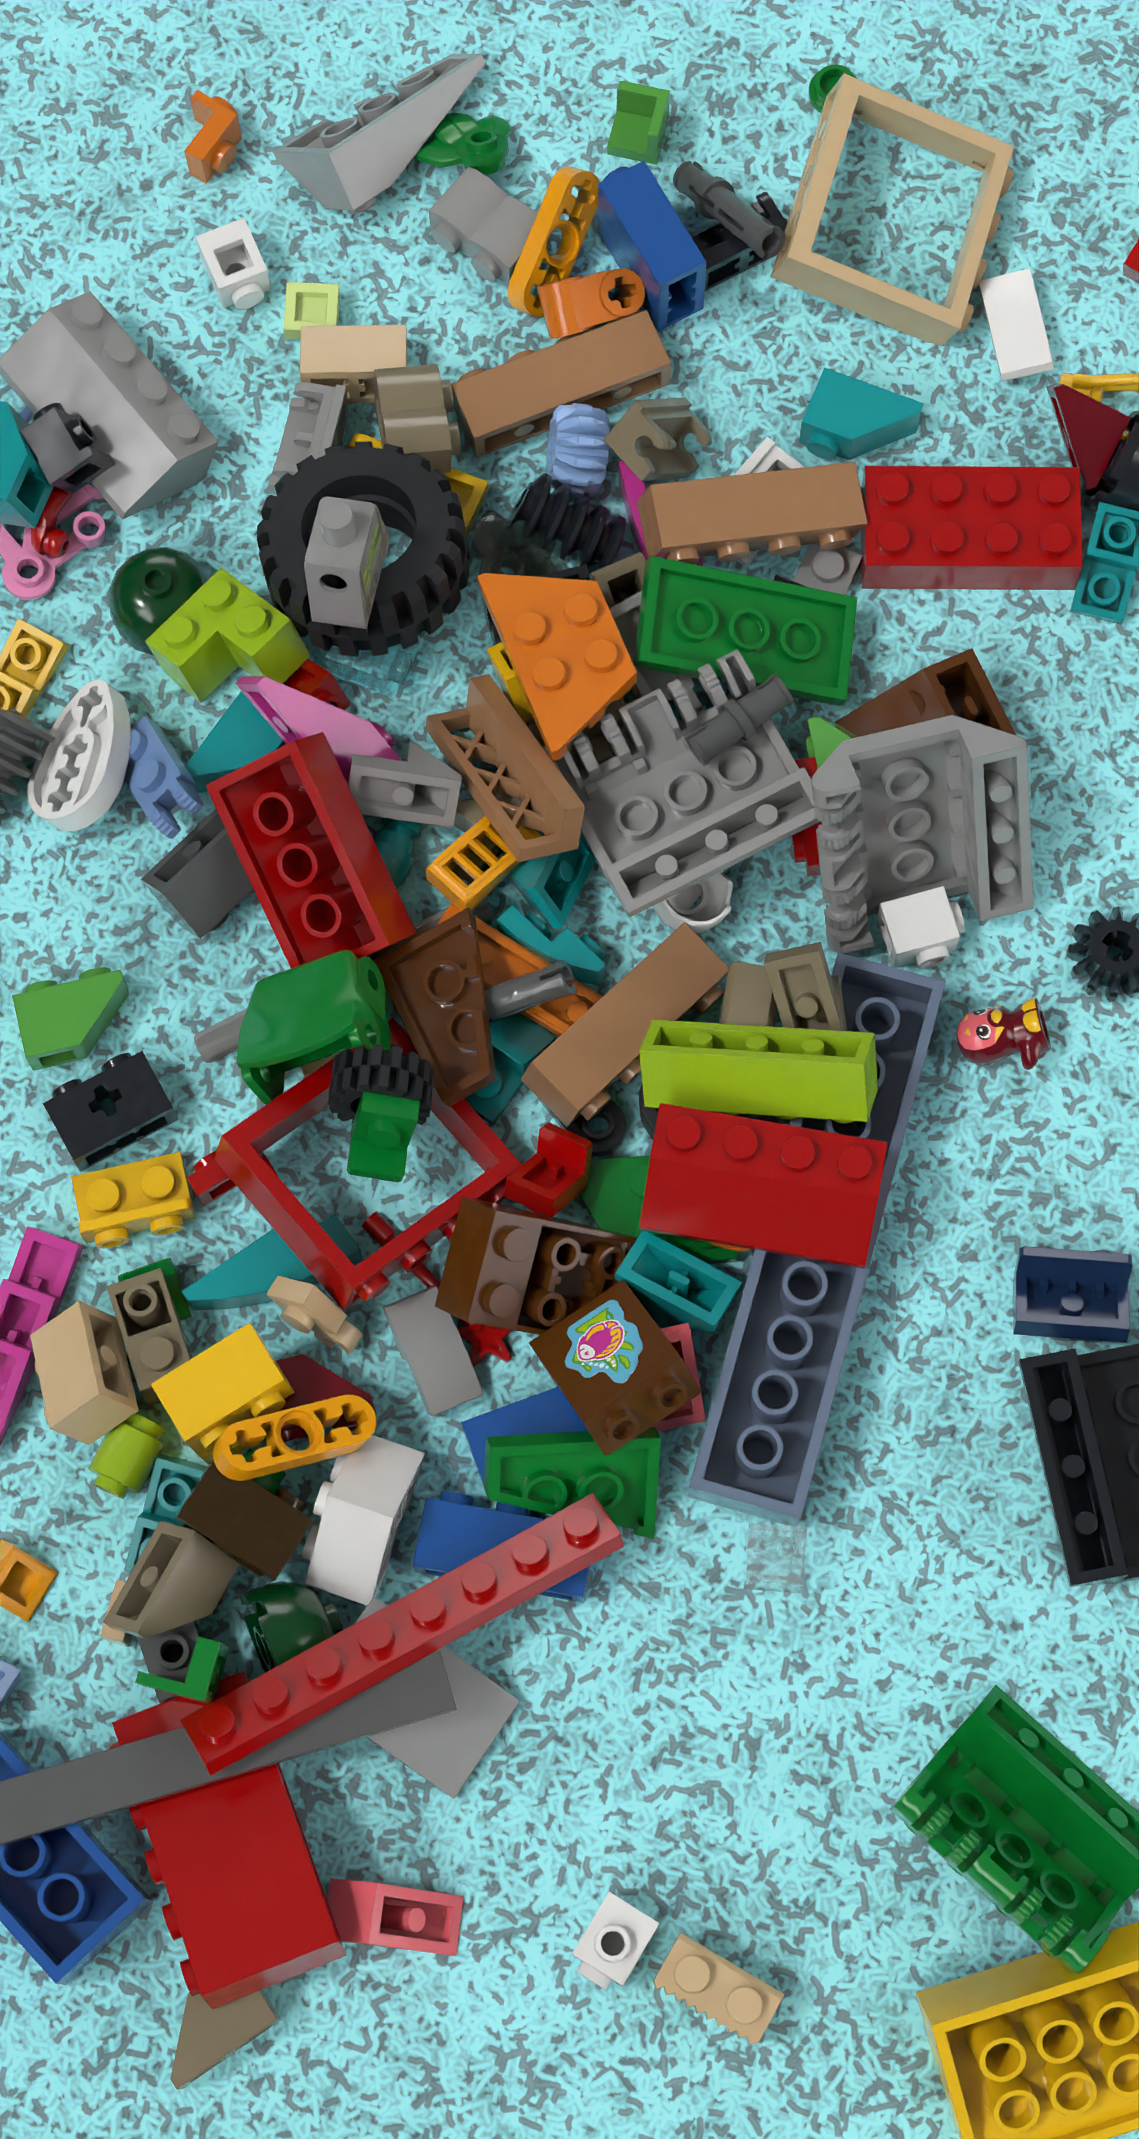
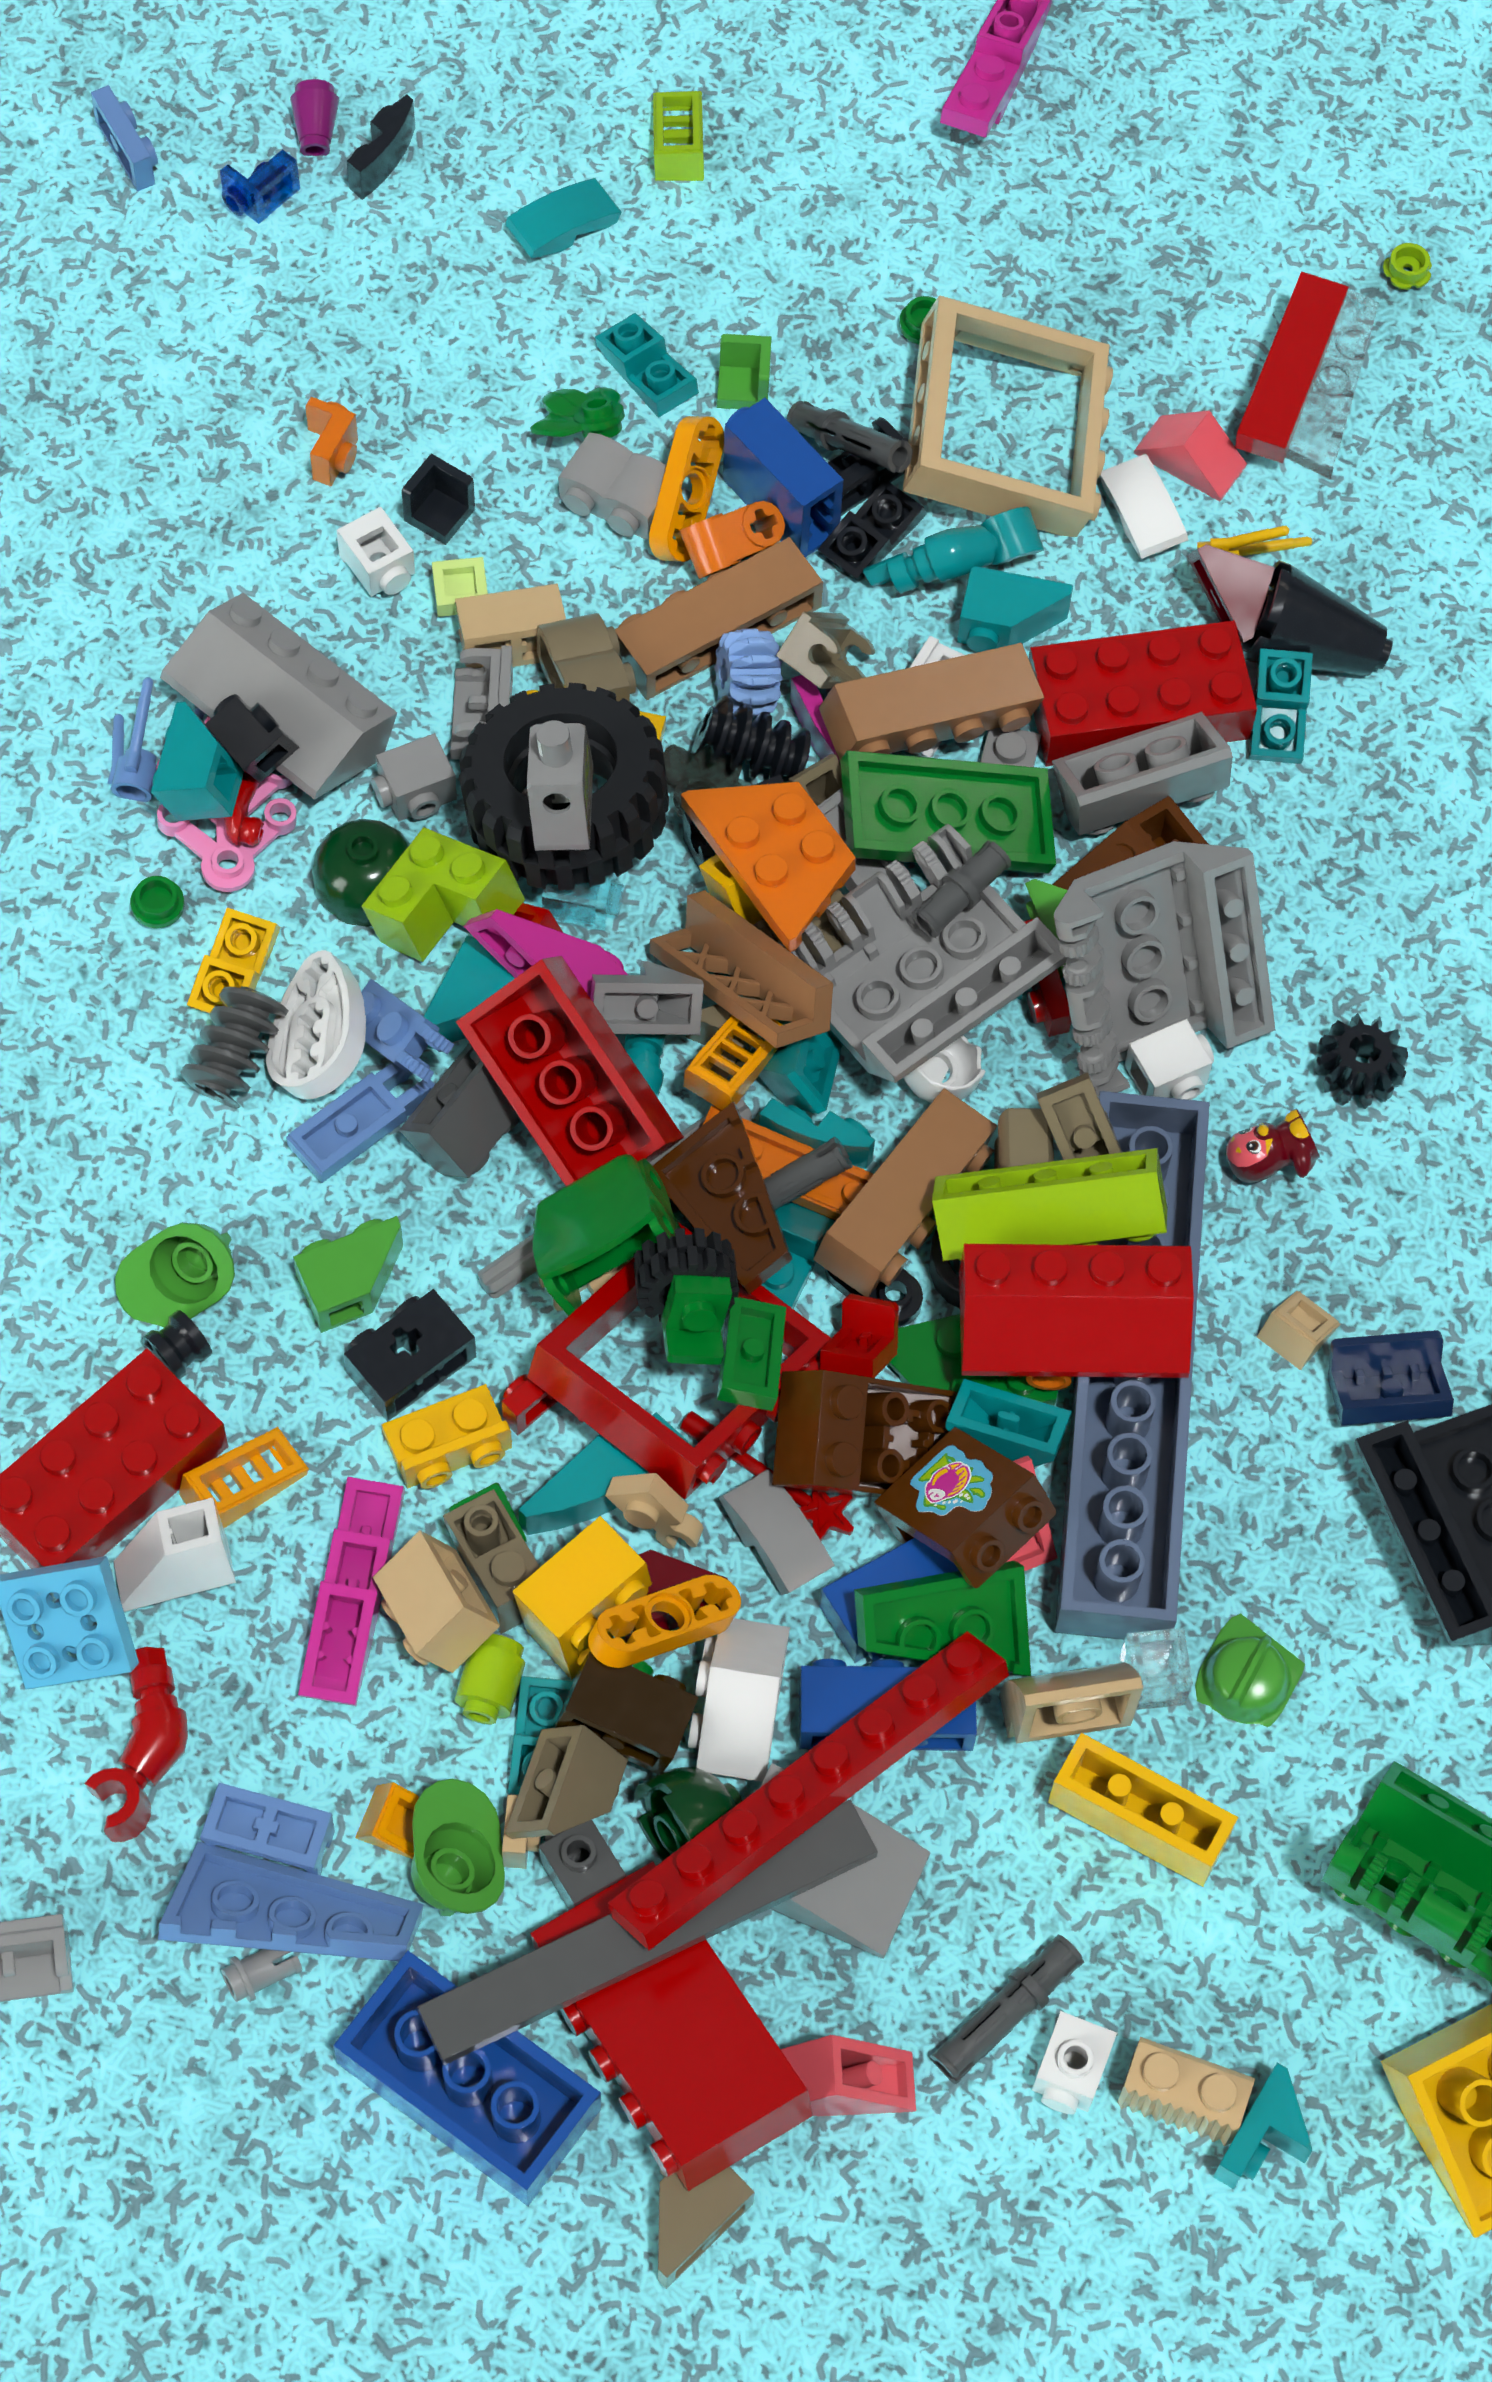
camera: 15 degrees left, 10 degrees down
(59, 1623) = (457, 1848): none -> bright green piece
(102, 861) = (355, 1121): none -> medium blue hinge
(202, 1676) = (605, 1872): green panel -> none
(225, 510) = (415, 779): none -> light grey brick
(305, 215) = (438, 499): none -> black panel
(365, 154) = (499, 415): light grey wedge -> none
(435, 1174) = (752, 1354): none -> green plate
(543, 98) = (645, 365): none -> teal slope
(562, 1872) = (1016, 2000): none -> dark grey pin
(680, 1581) = (1070, 1702): none -> tan slope
(731, 1698) = (1142, 1809): none -> yellow brick
(736, 312) = (873, 530): none -> black slope
(795, 2026) = (1272, 2118): none -> teal slope
(813, 348) = (957, 550): none -> teal piece
(869, 1571) = (1247, 1674): none -> bright green piece
(951, 614) = (1136, 771): none -> light grey slope
(993, 1223) = (1297, 1329): none -> tan slope
(1080, 272) = (1194, 451): none -> coral slope

